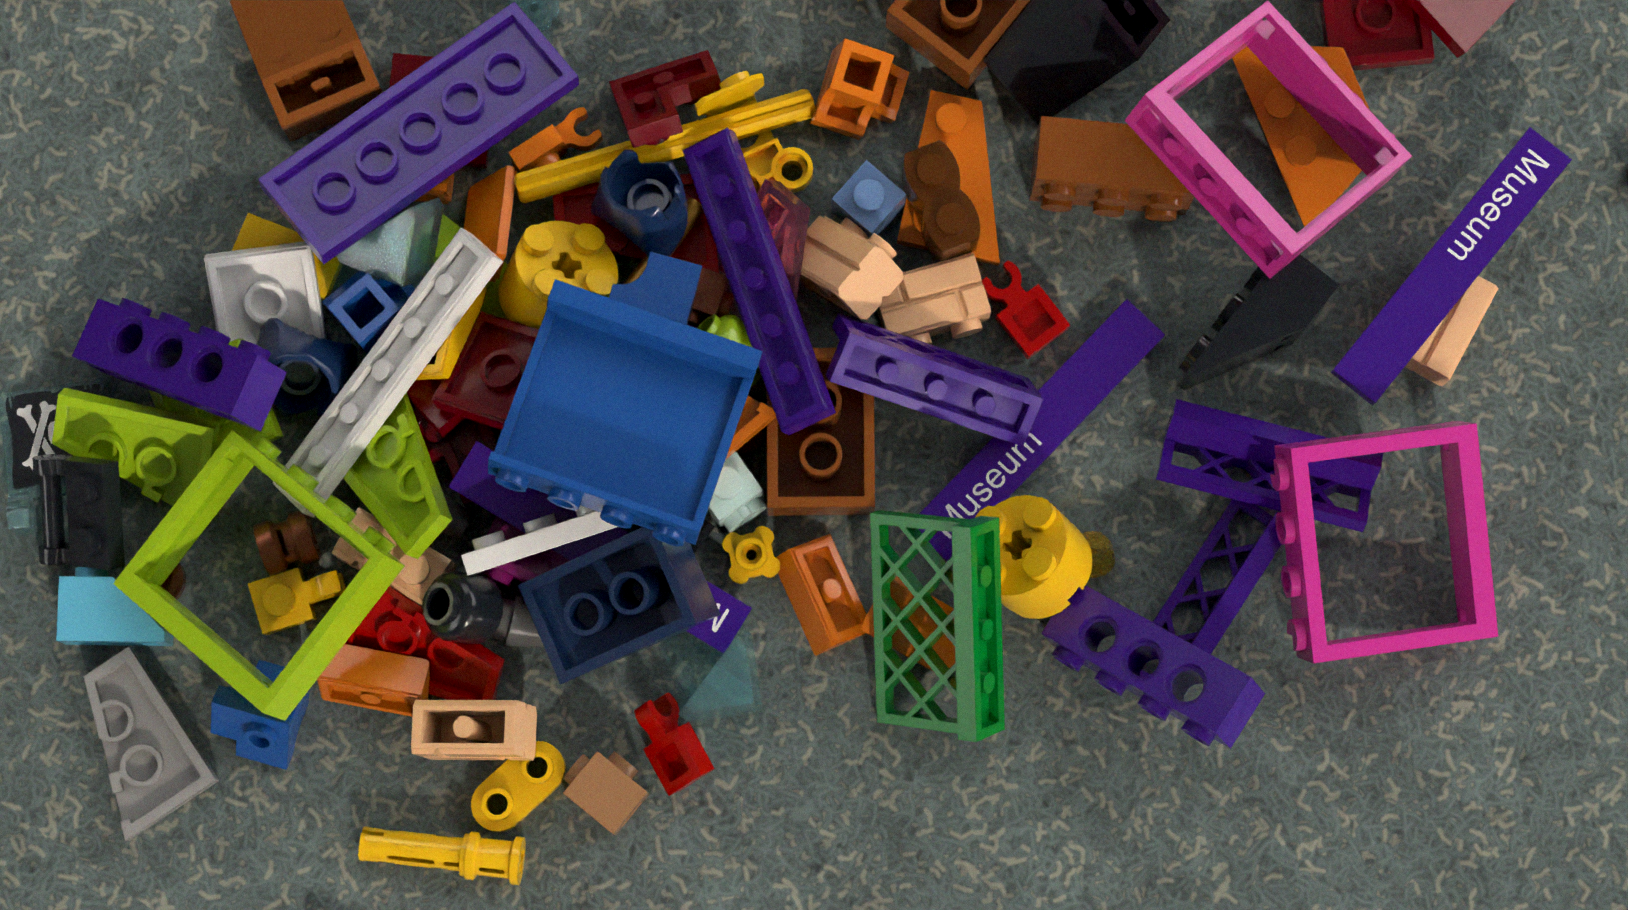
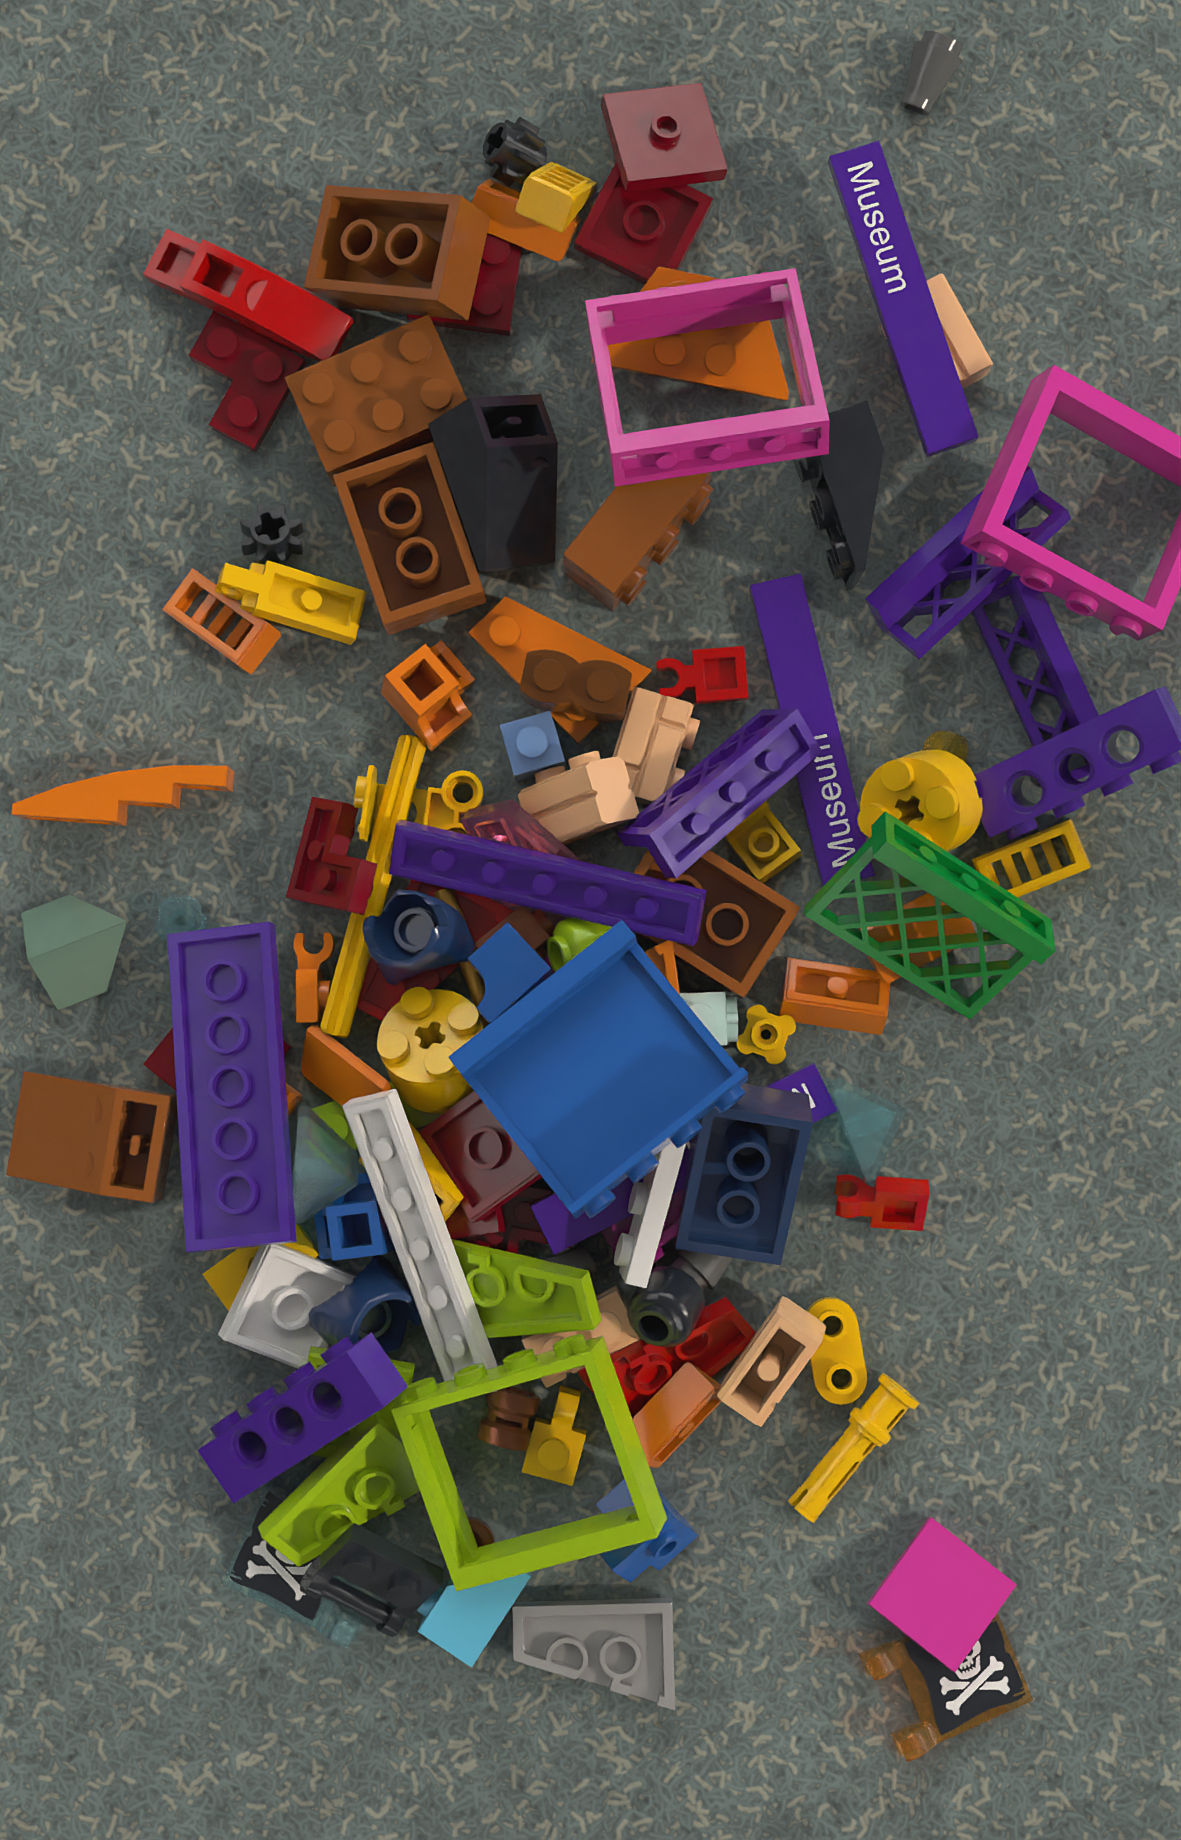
camera: 55 degrees left, 5 degrees up
(605, 789) = (887, 1281): medium nougat brick -> none
(914, 447) = (763, 844): none -> yellow slope
(1084, 717) = (1072, 844): none -> yellow slope

